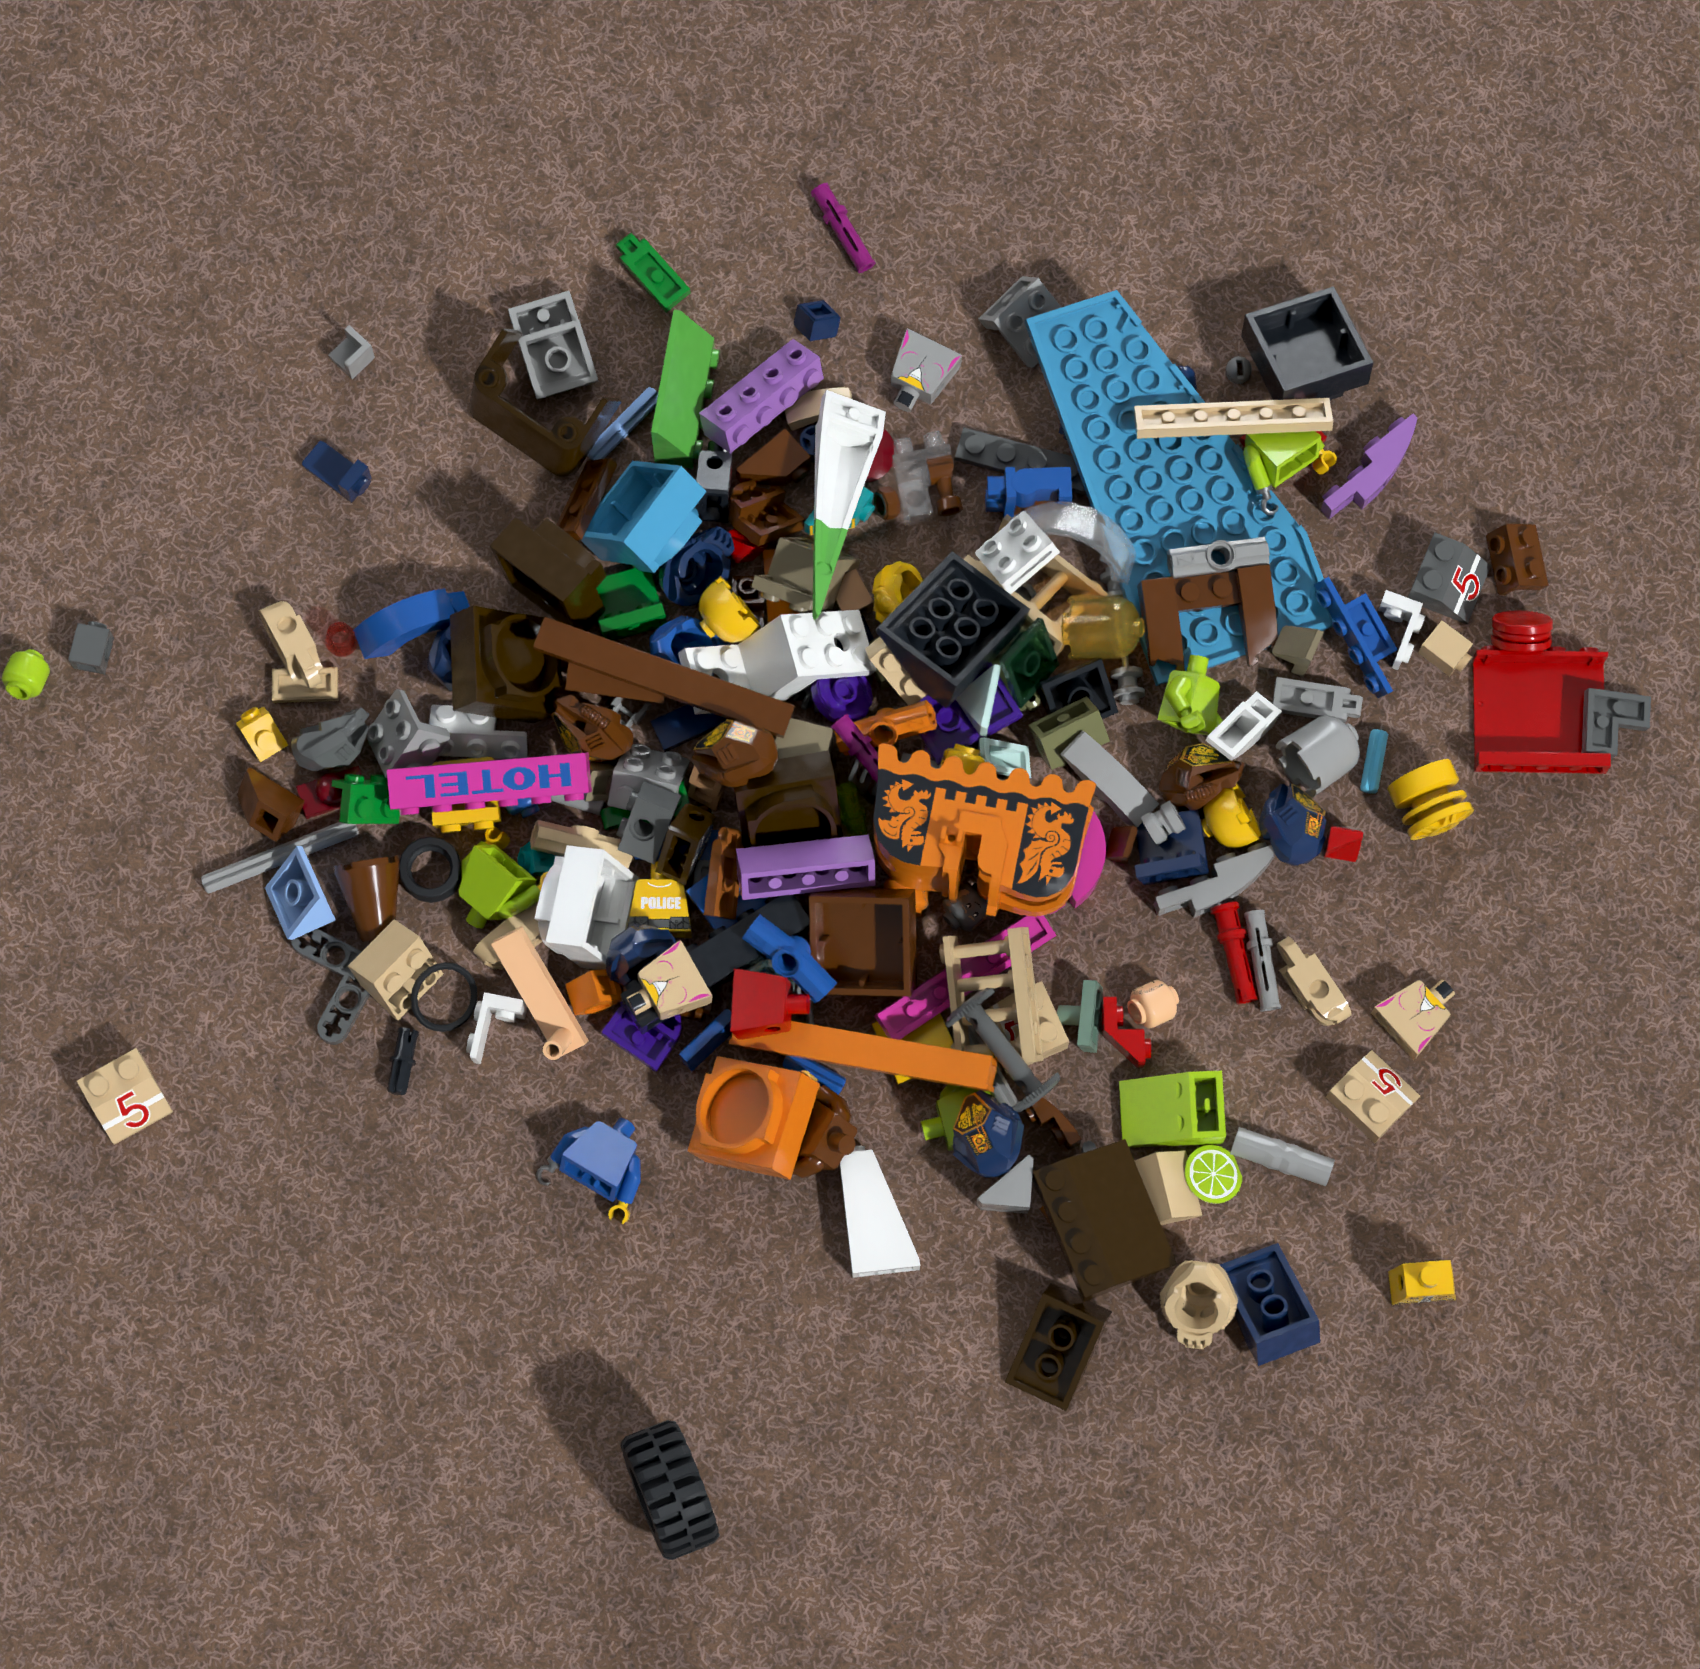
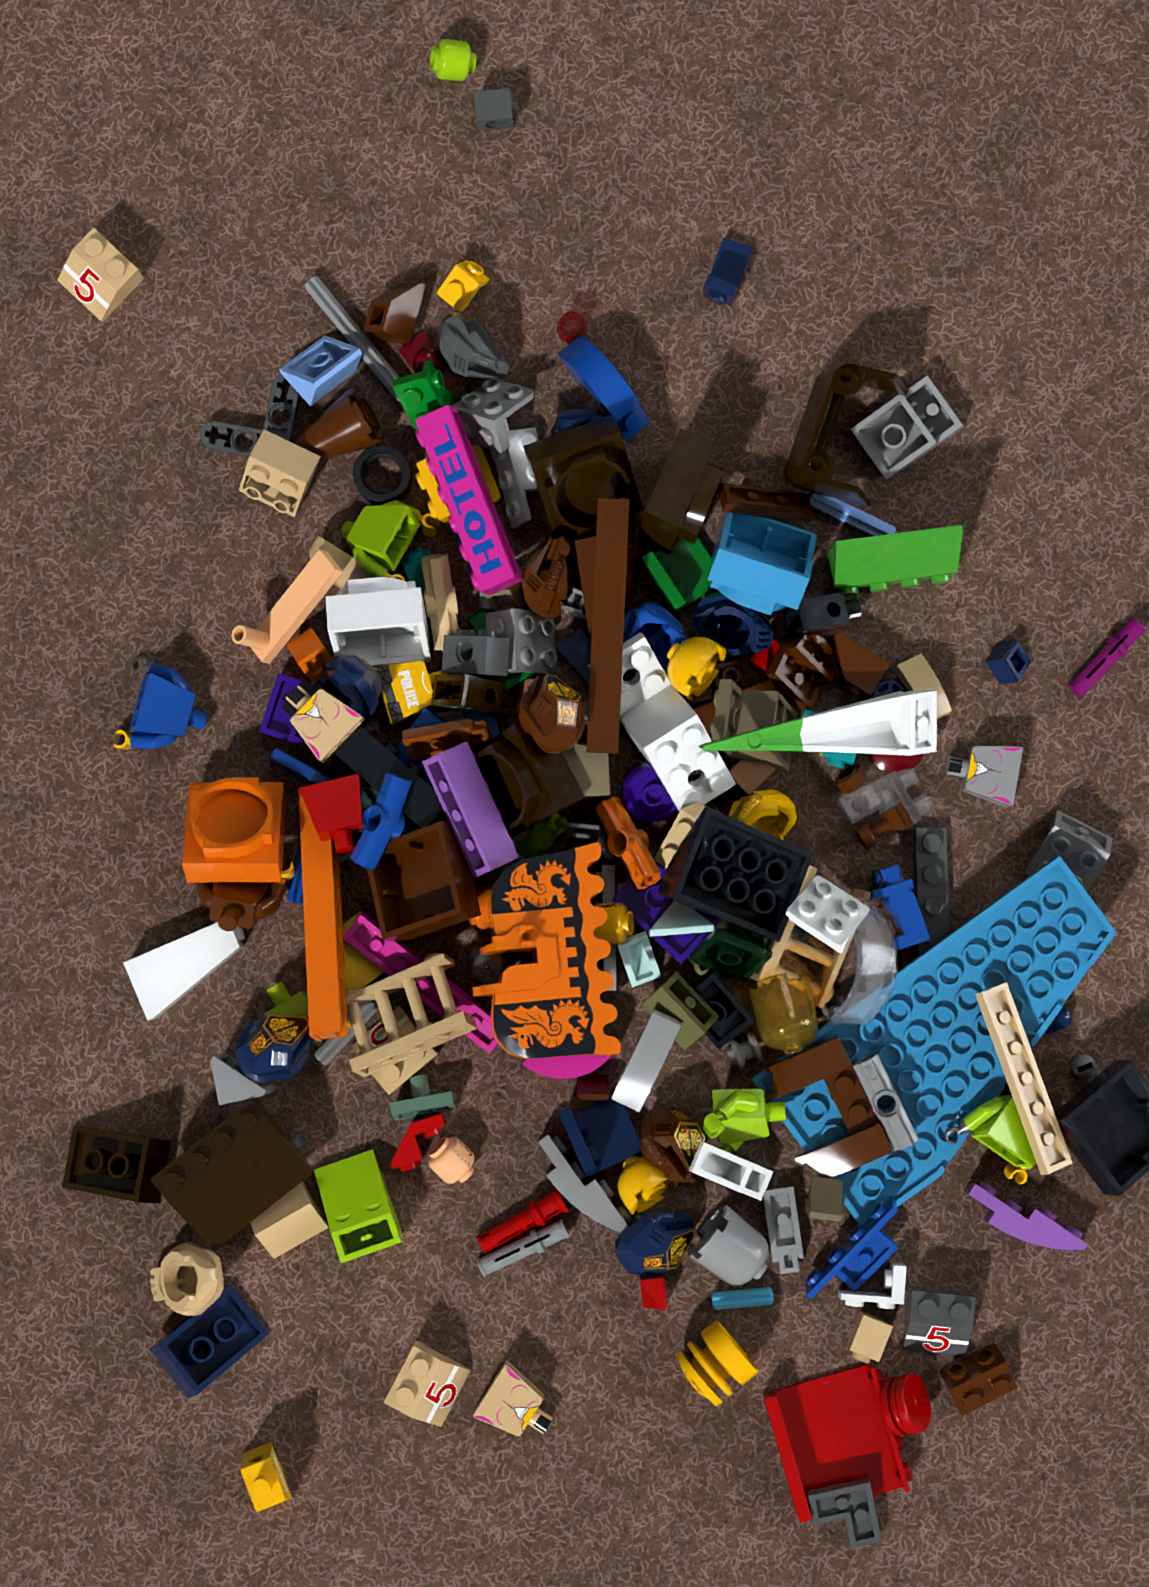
camera: 75 degrees right, 10 degrees up
(288, 691) = (520, 309): tan tile -> none
(292, 642) = (551, 284): tan piece -> none
(352, 353) = (842, 249): light grey panel -> none
(402, 1061) = (202, 506): black axle -> none
(414, 995) = (267, 496): black tyre -> none
(505, 1009) = (273, 582): white bracket -> none
(652, 272) = (1007, 496): green hinge -> none
(761, 396) = (914, 633): medium lavender brick -> none
(858, 744) = (613, 806): magenta pin -> none
(1003, 1050) = (326, 1077): dark grey hose -> none
(1063, 1131) = (322, 1090): reddish brown slope -> none
(1163, 822) = (619, 1122): light grey wheel -> none
(1213, 1174) = (312, 1258): lime sticker -> none
(1282, 1156) = (346, 1317): light grey axle -> none
(1312, 984) = (513, 1300): tan piece -> none

